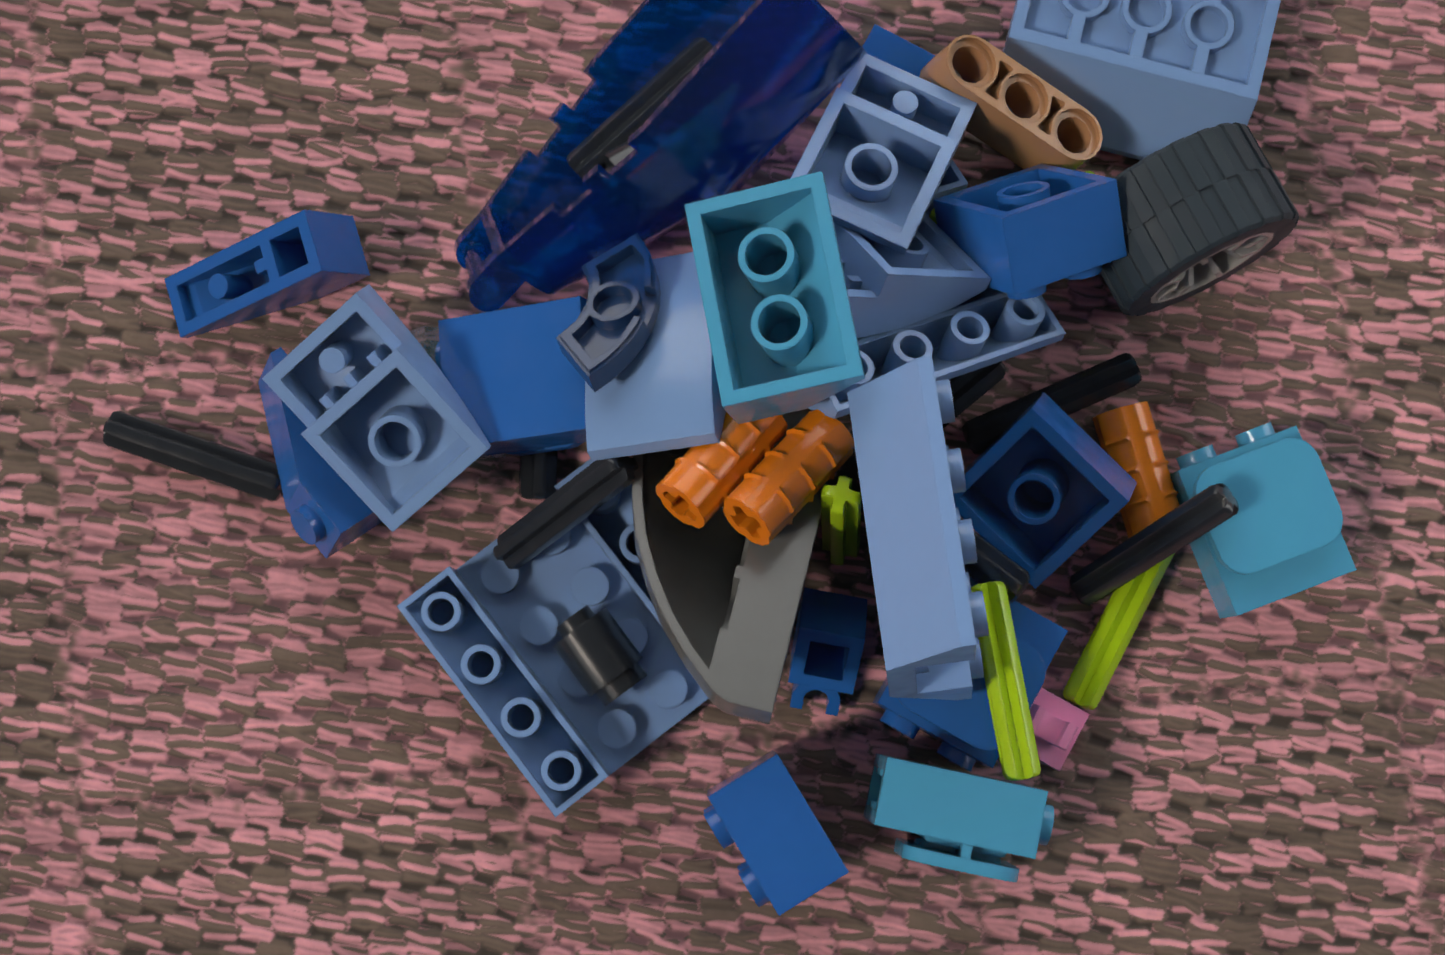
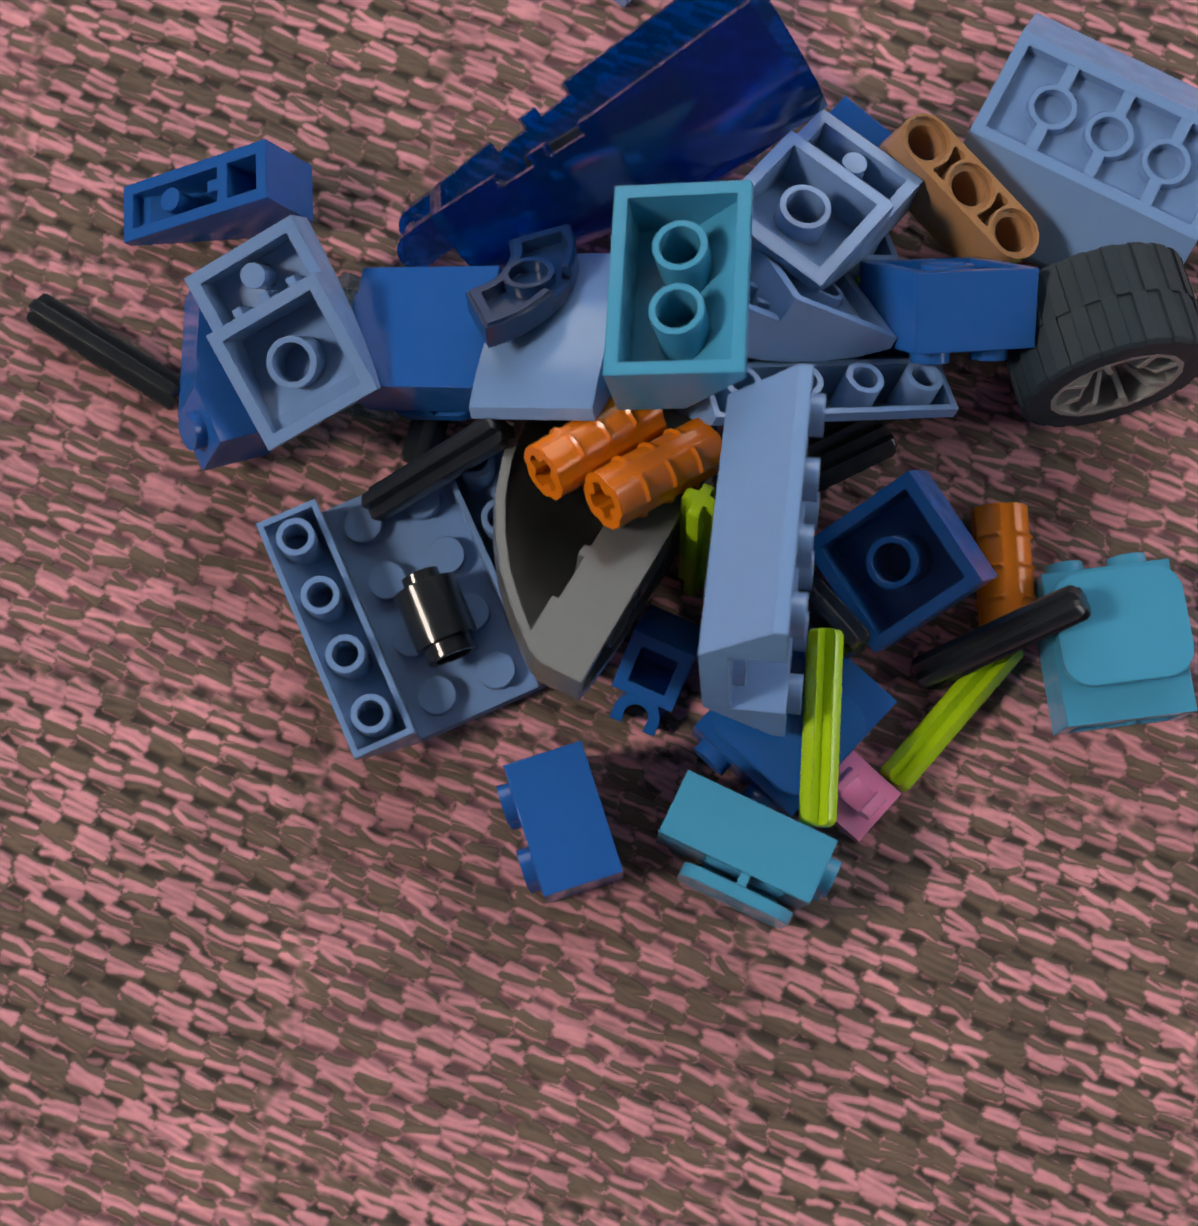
camera: 20 degrees right, 5 degrees down
(1069, 394) = (957, 484): black axle -> none

